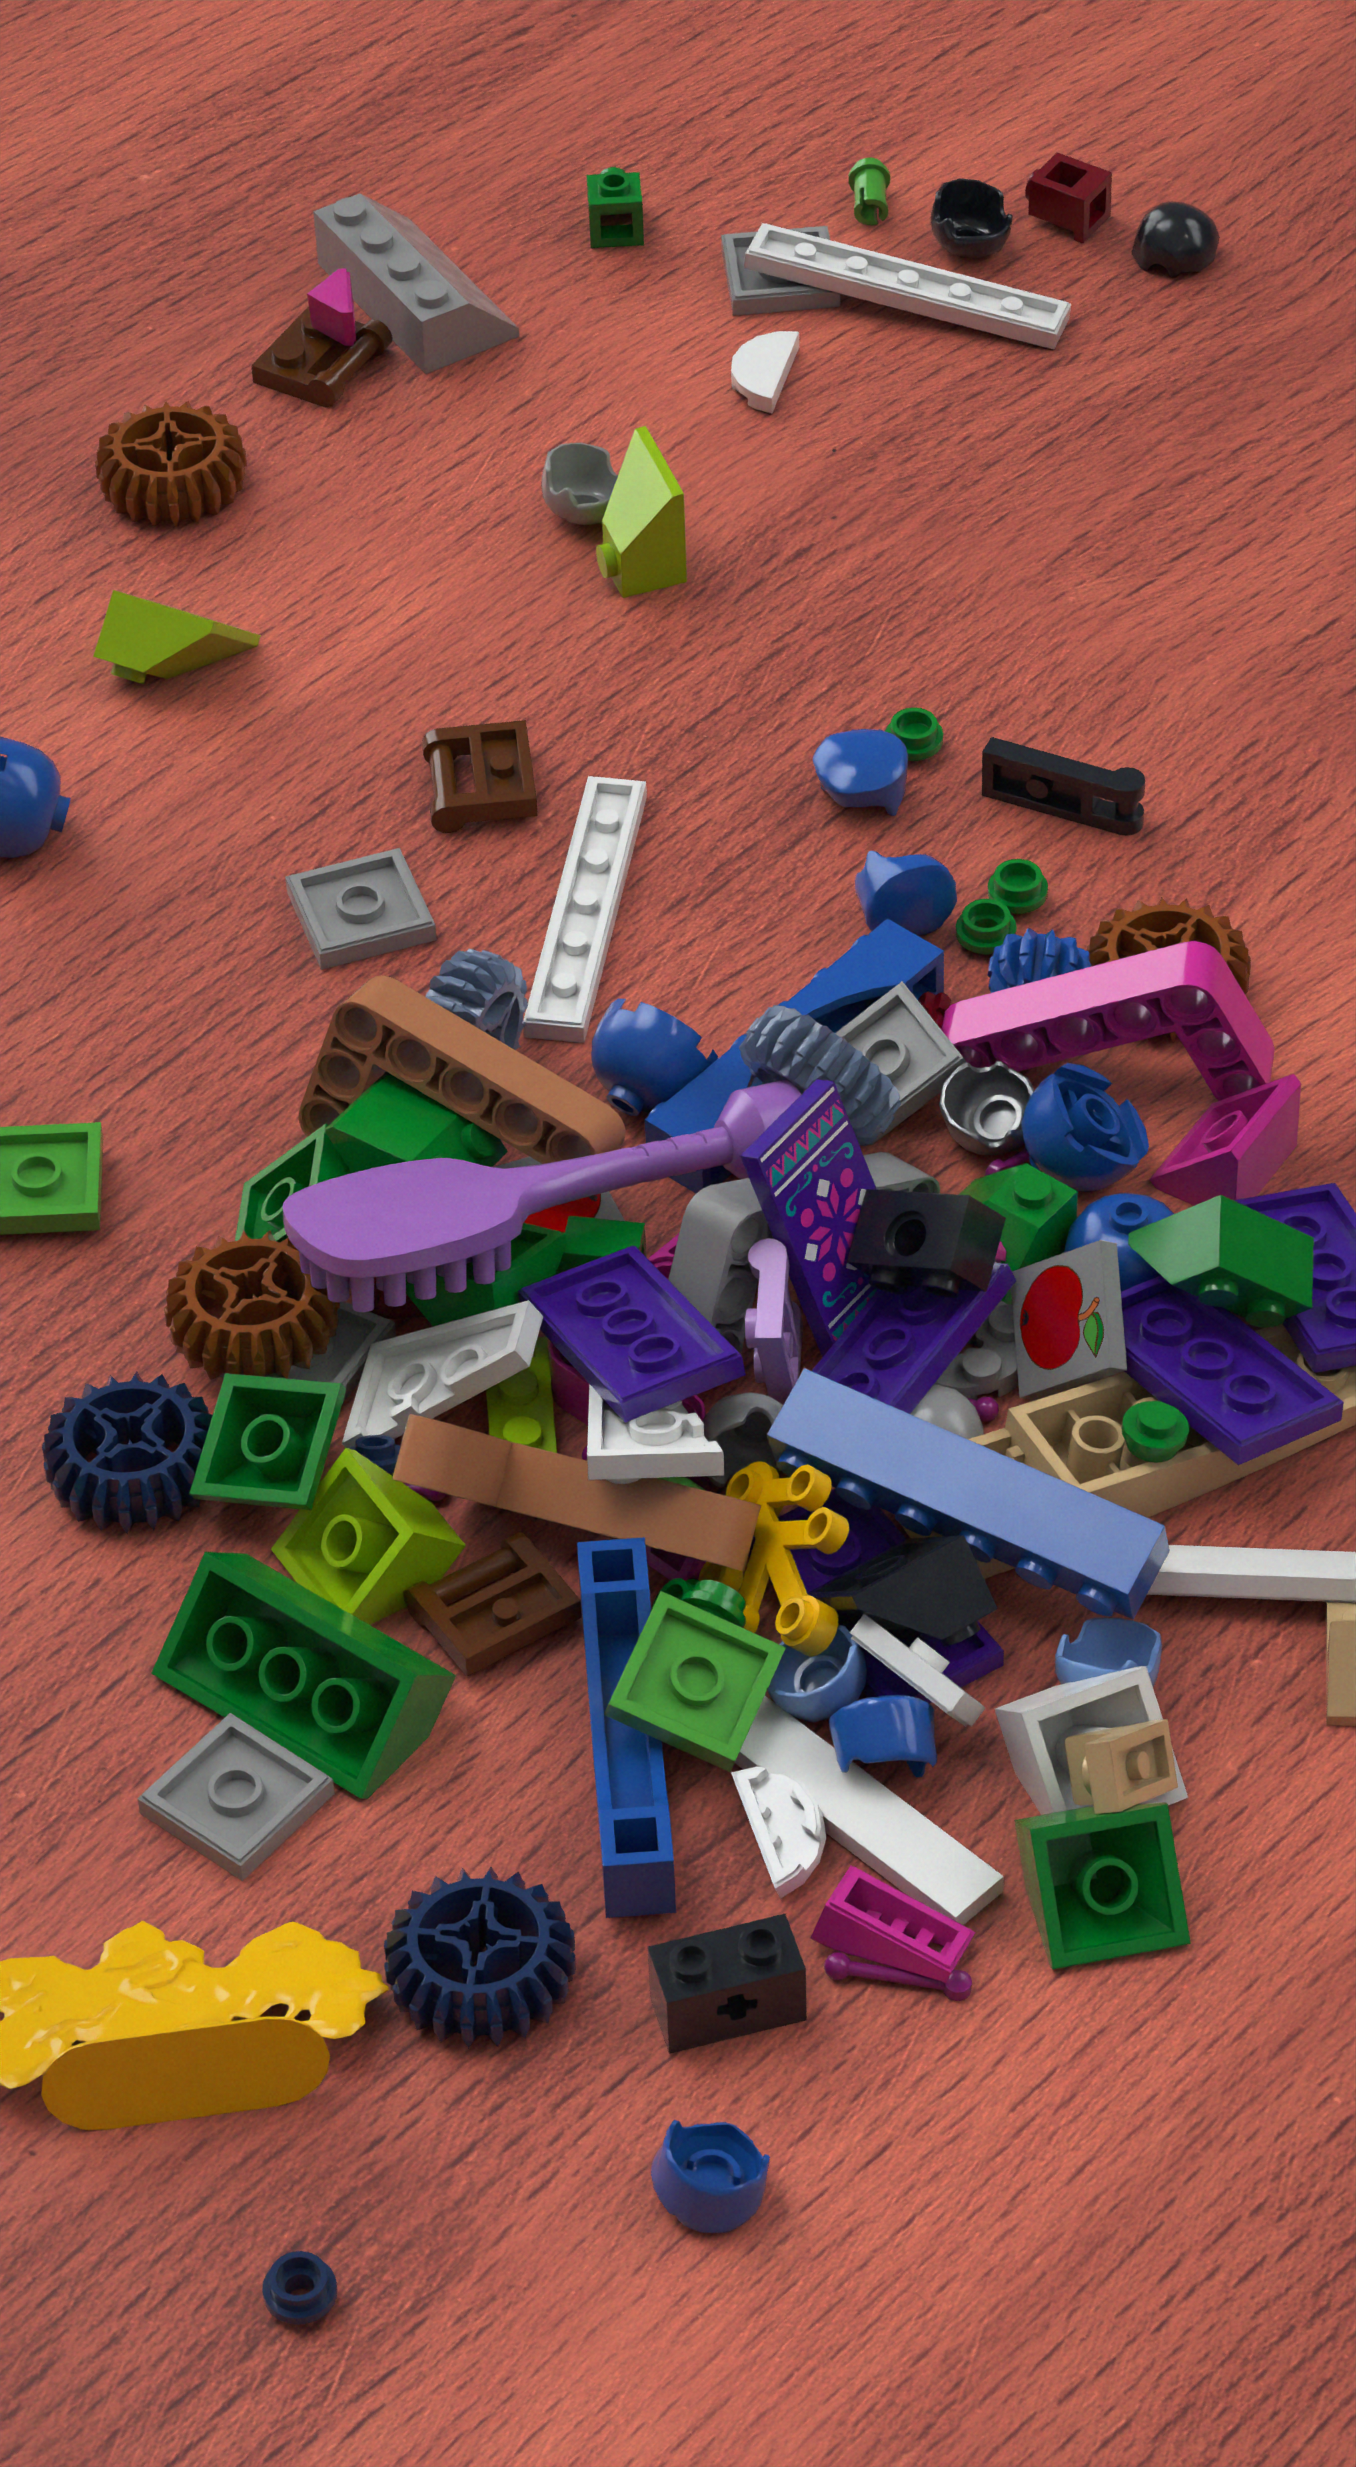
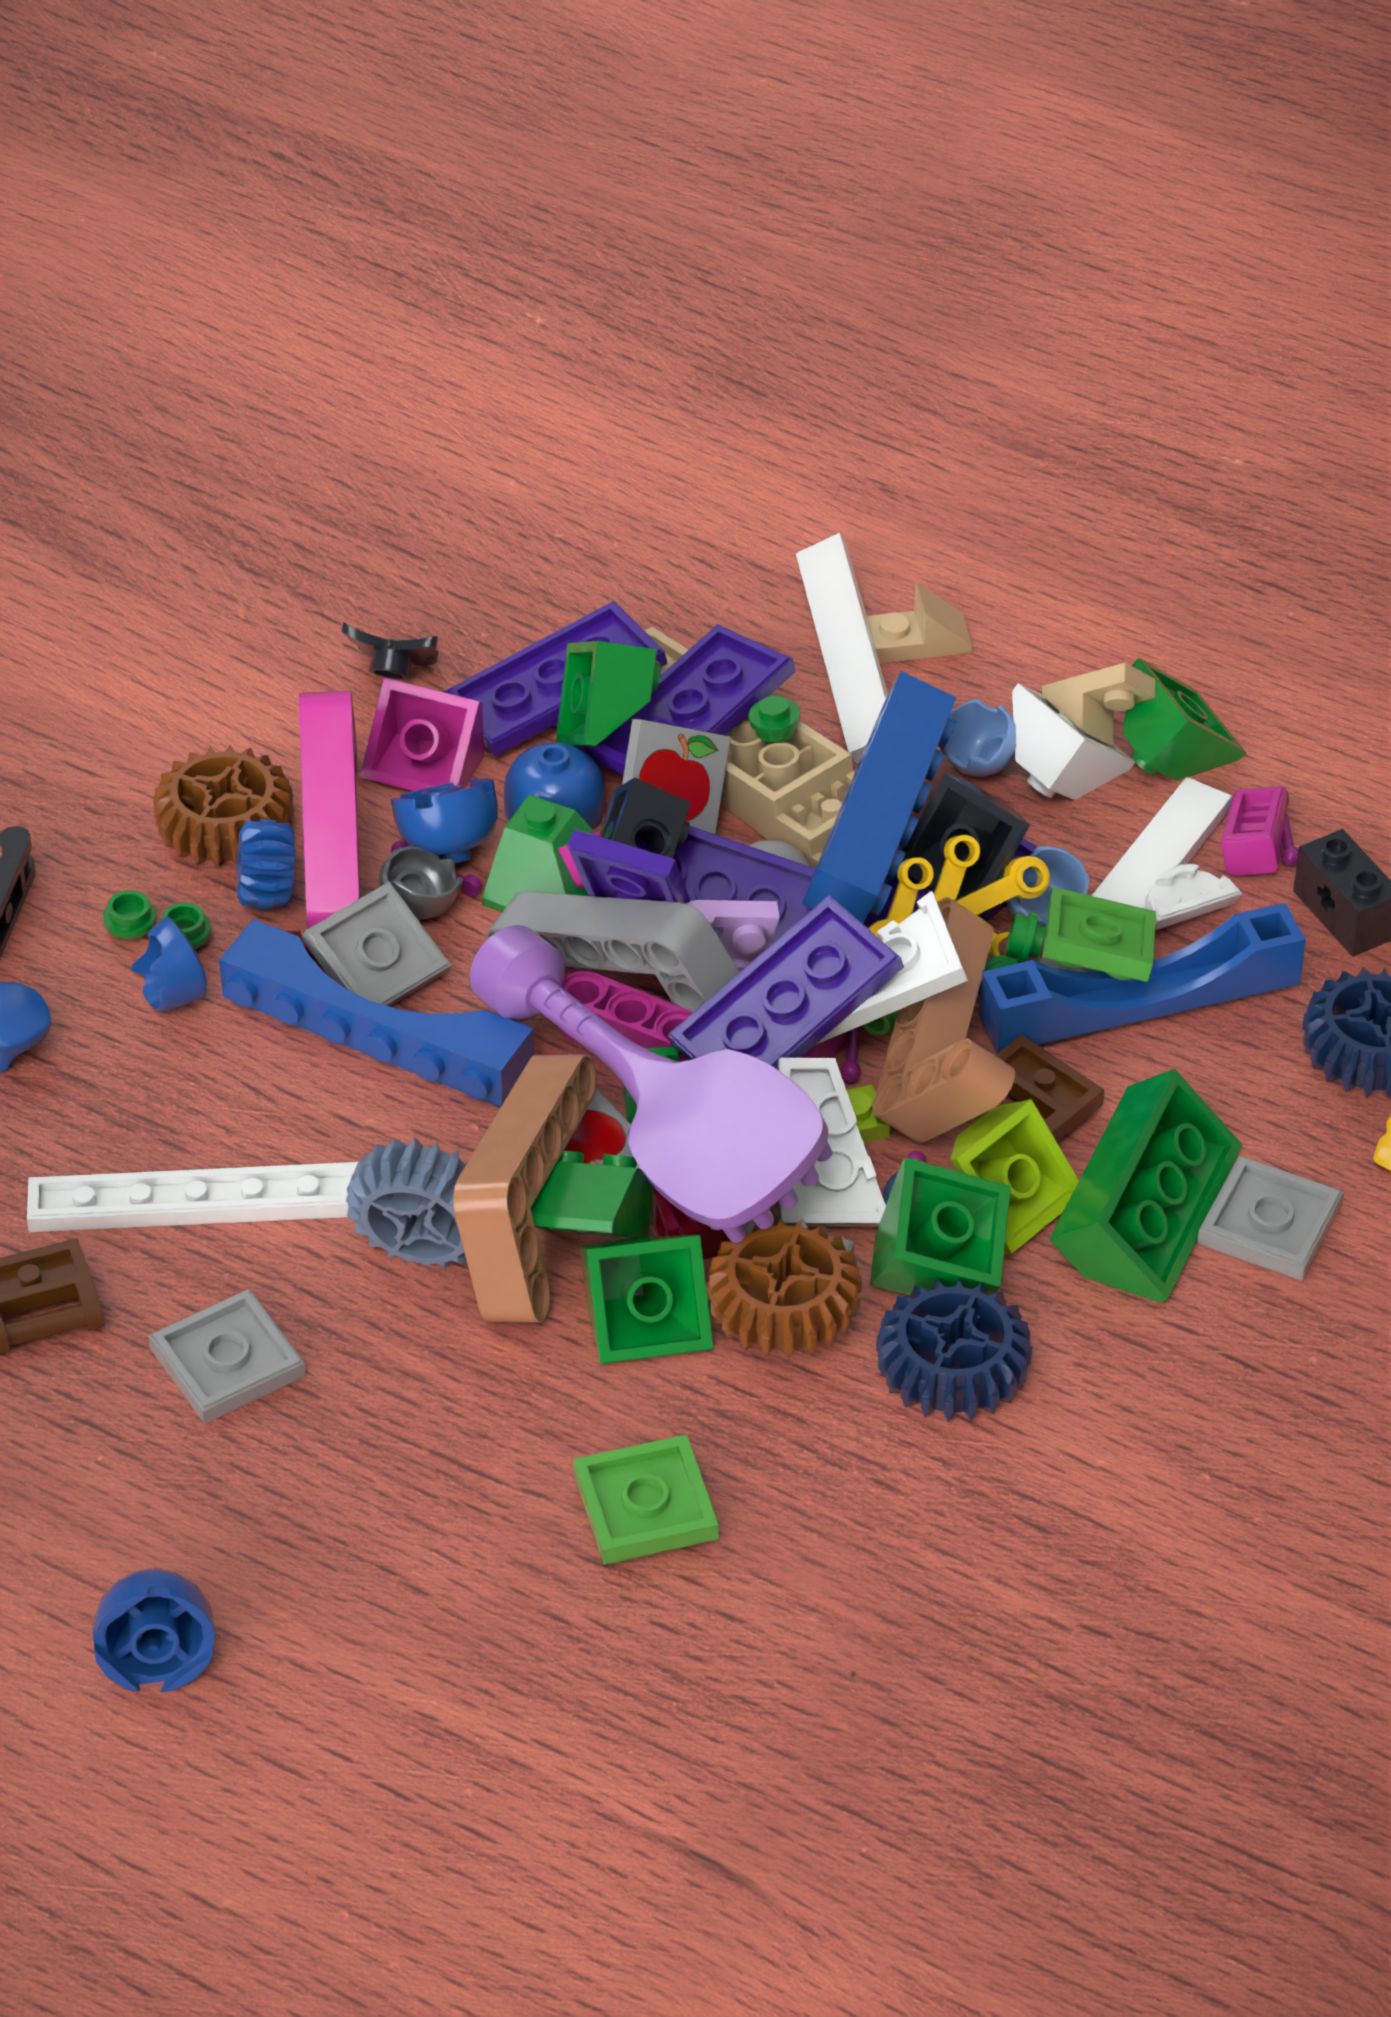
camera: 105 degrees left, 0 degrees up
(644, 1056) = (420, 1093): blue cylinder -> none
(801, 1050) = (448, 946): sand blue gear -> none
(885, 1731) = (1099, 838): blue hair -> none
(920, 1668) = (1046, 815): white plate -> none

